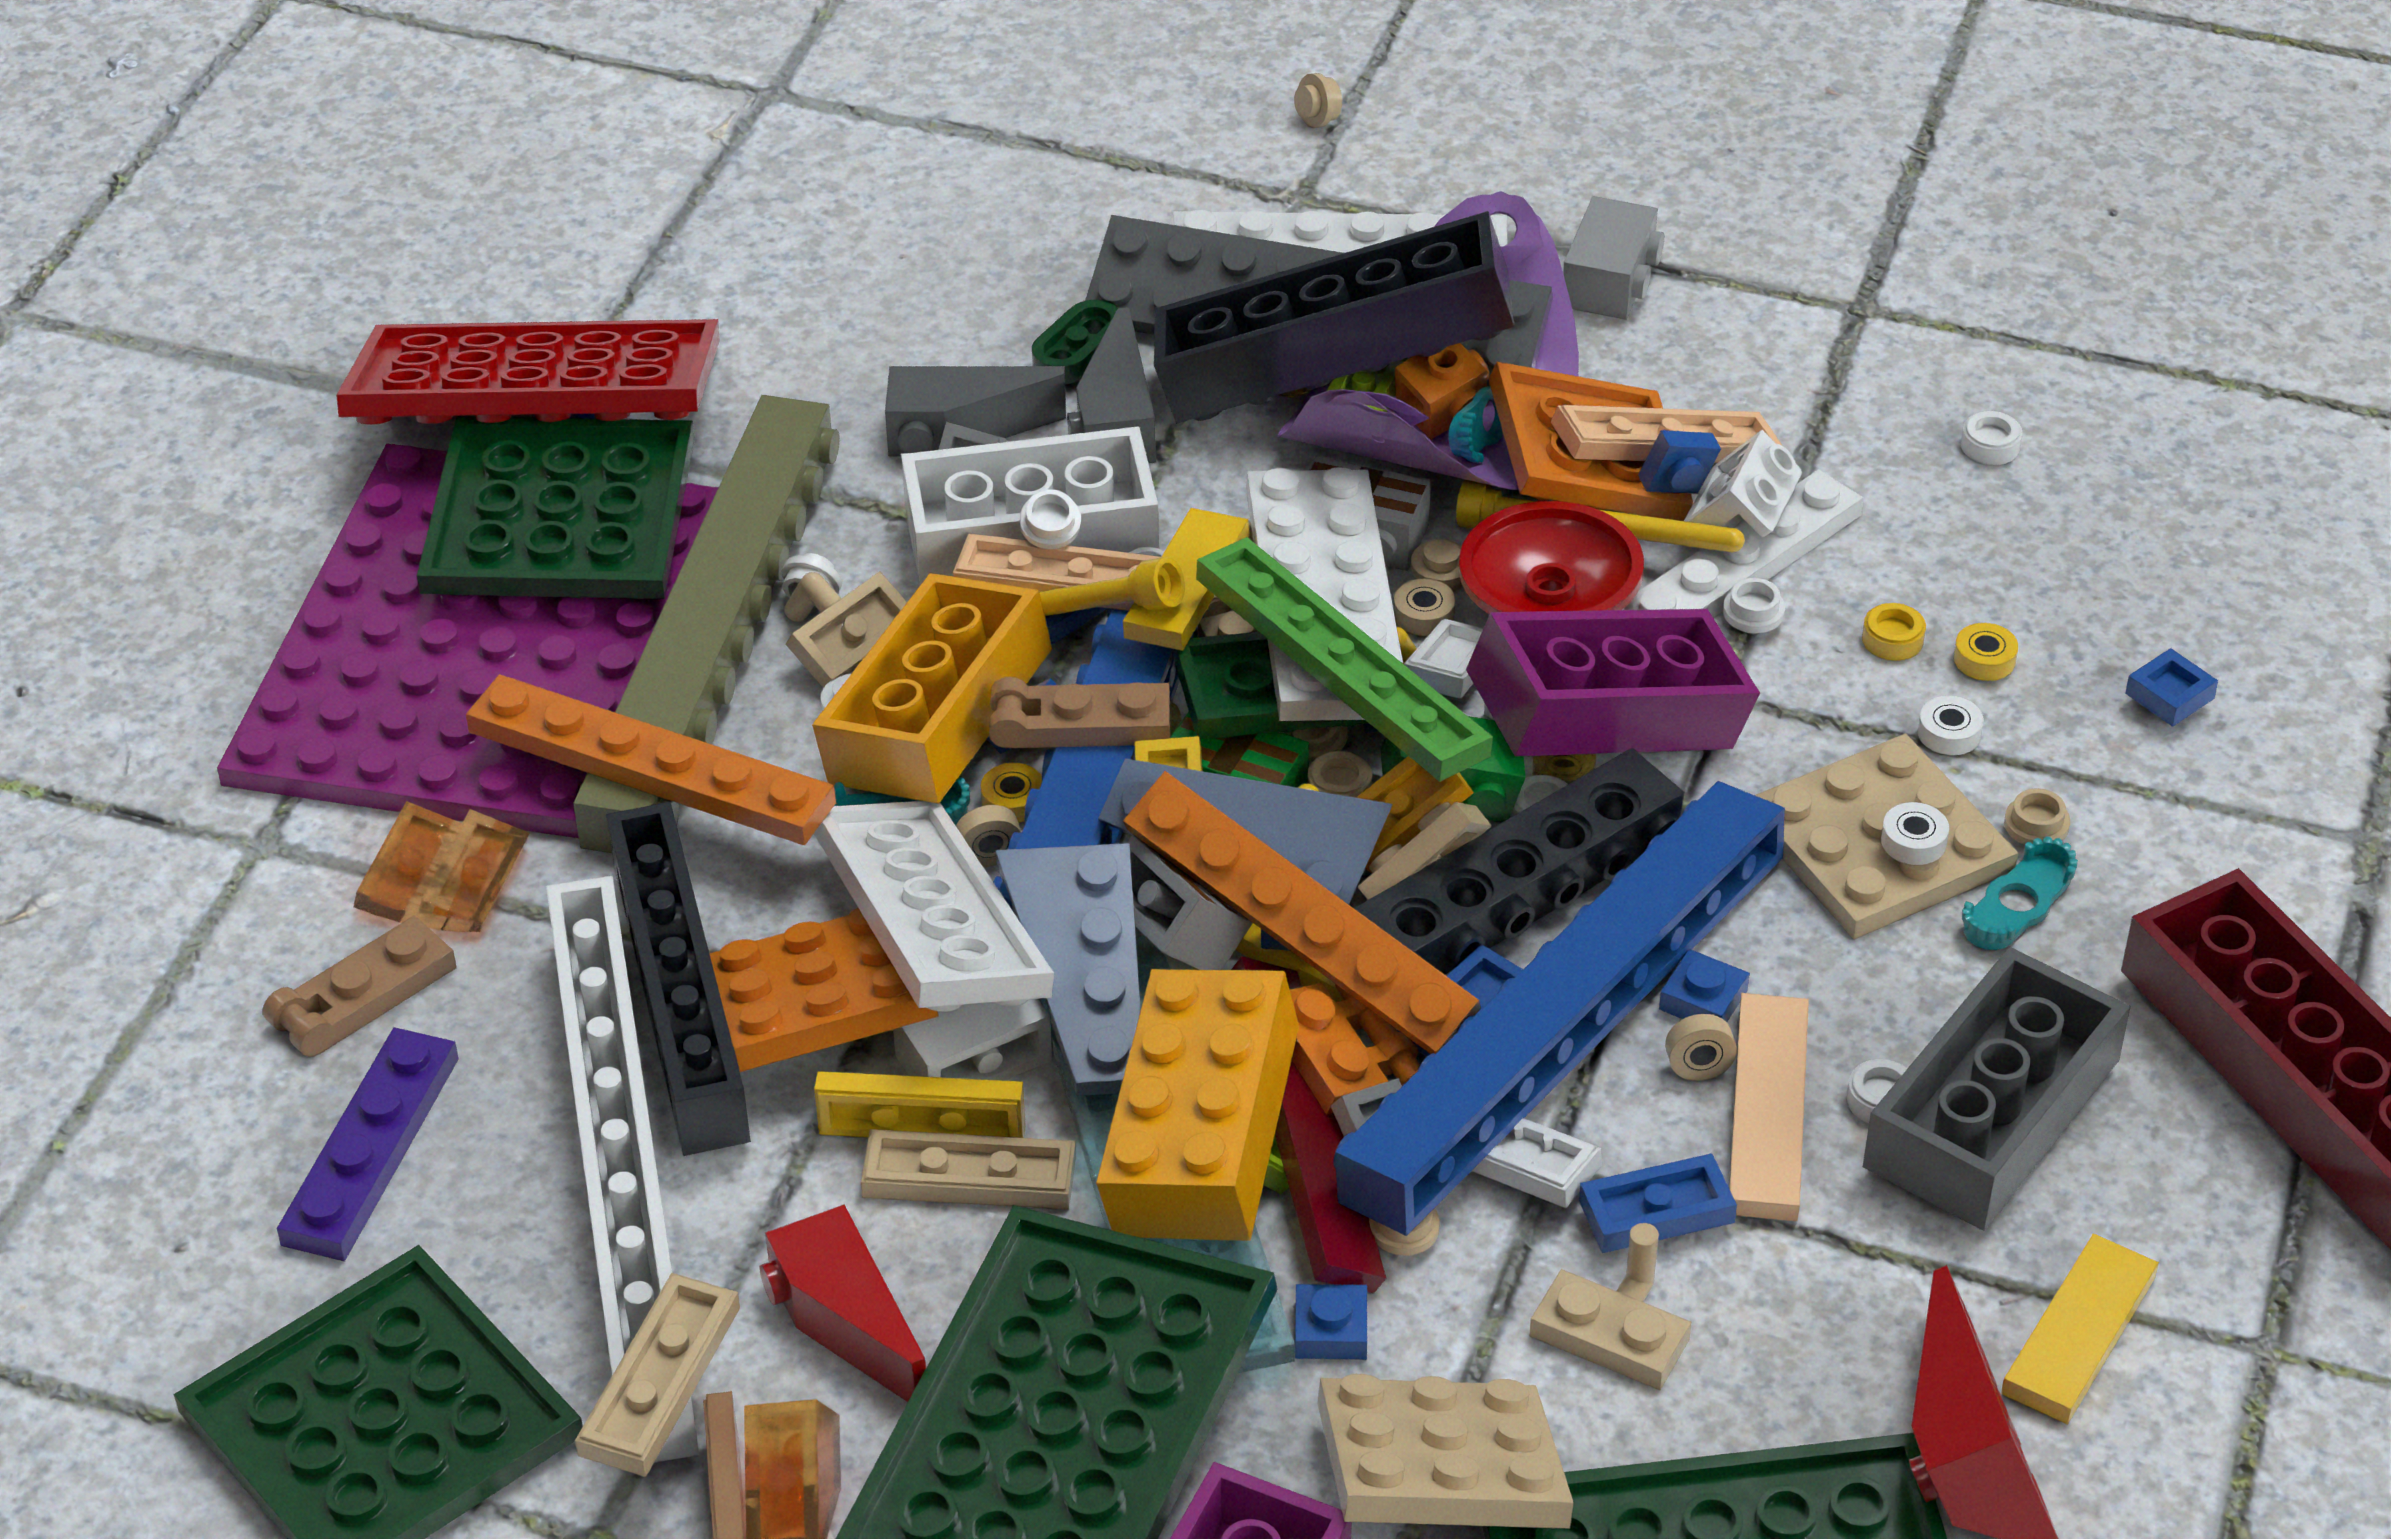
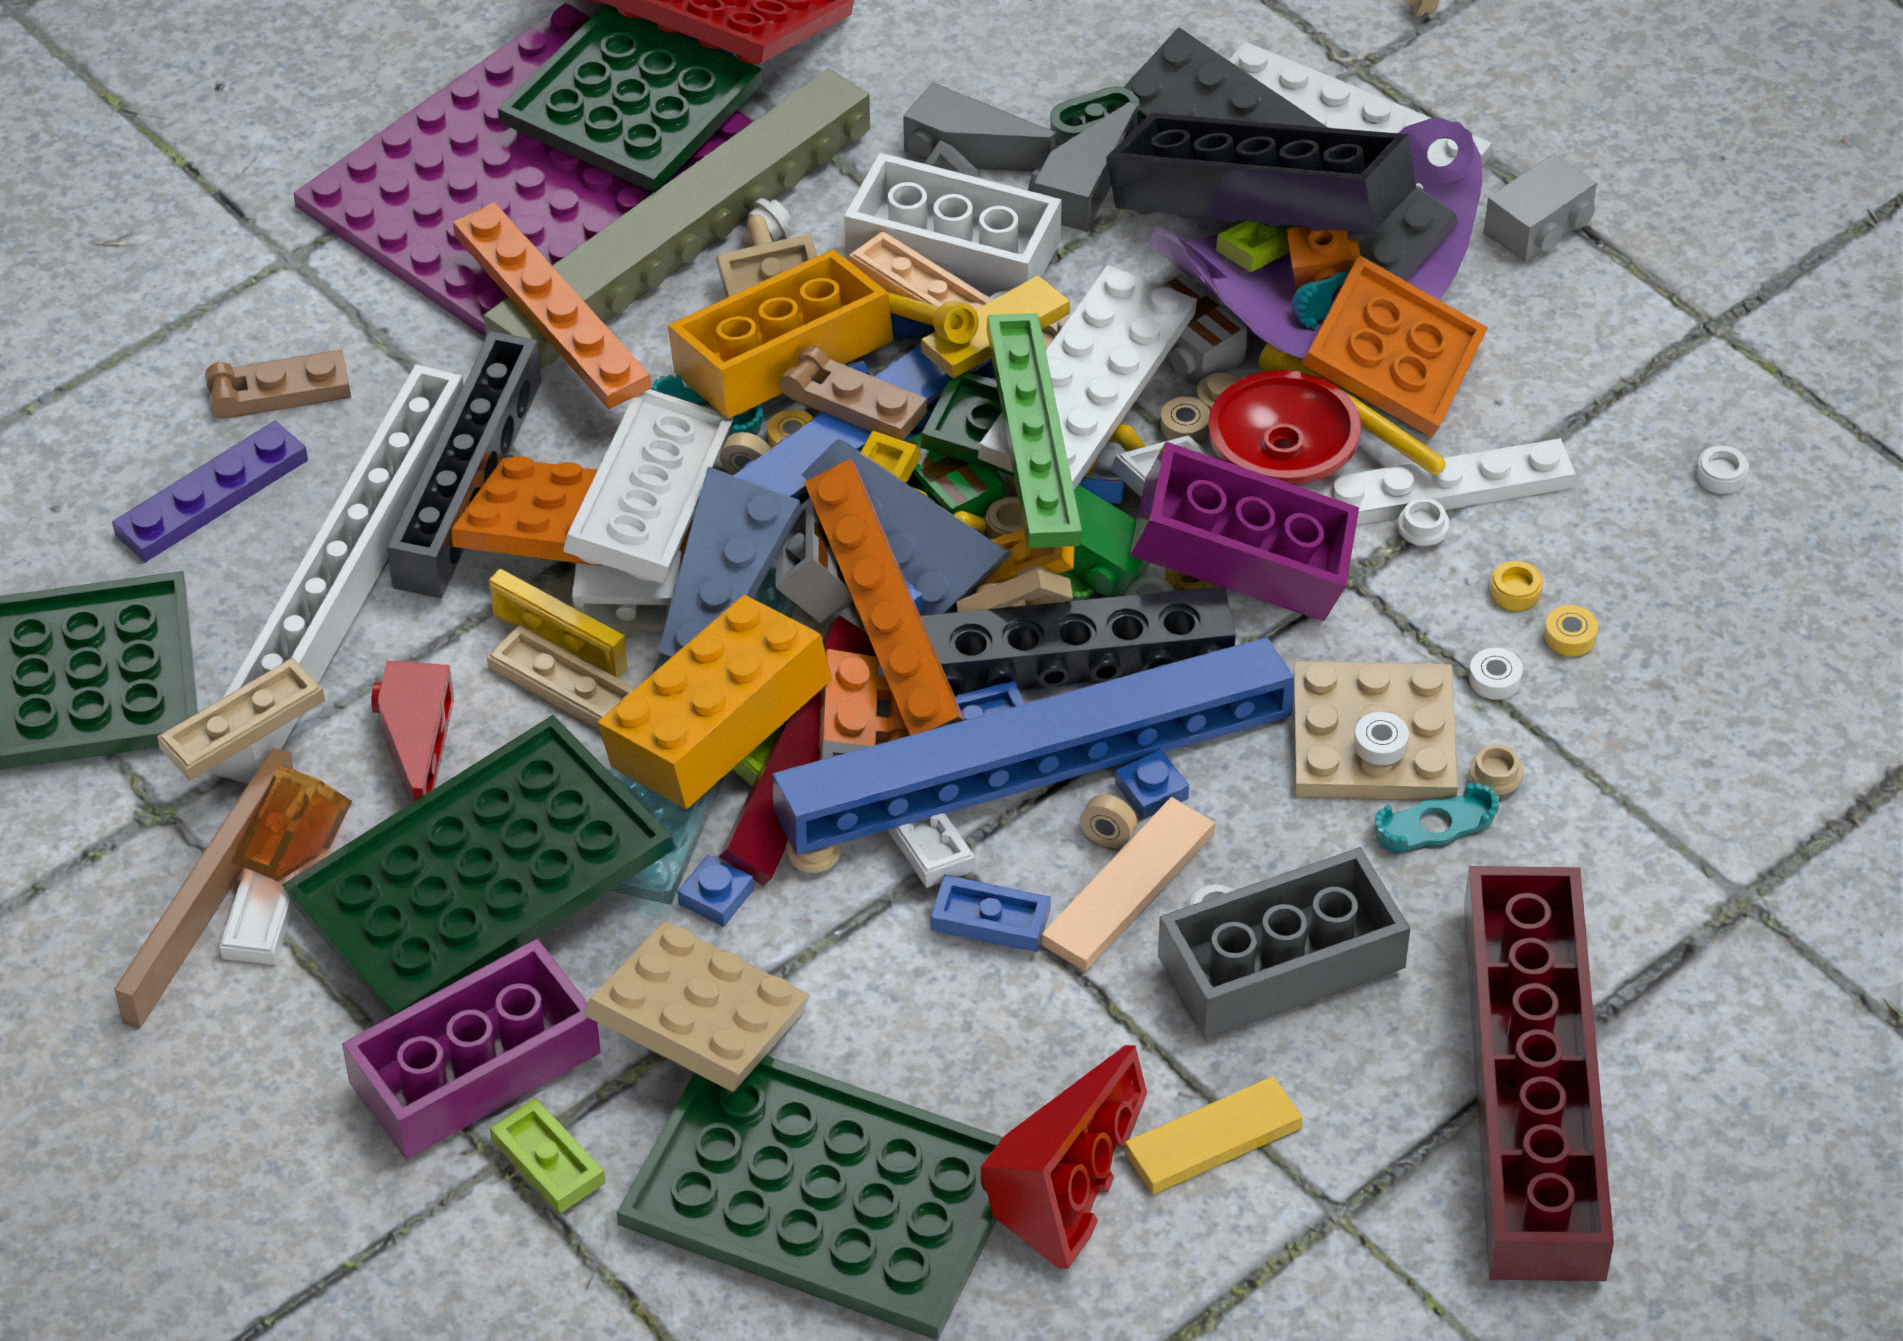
camera: 30 degrees right, 5 degrees up
(441, 869) = (384, 324): clear orange slope -> none
(1050, 519) = (938, 244): white plate -> none
(1614, 1325) = (899, 983): tan plate -> none
(1632, 431) = (1457, 364): light nougat tile -> none
(1679, 462) = (1439, 388): blue plate -> none
(1749, 486) = (1482, 431): white bracket -> none
(2171, 687) = (1683, 717): blue plate -> none

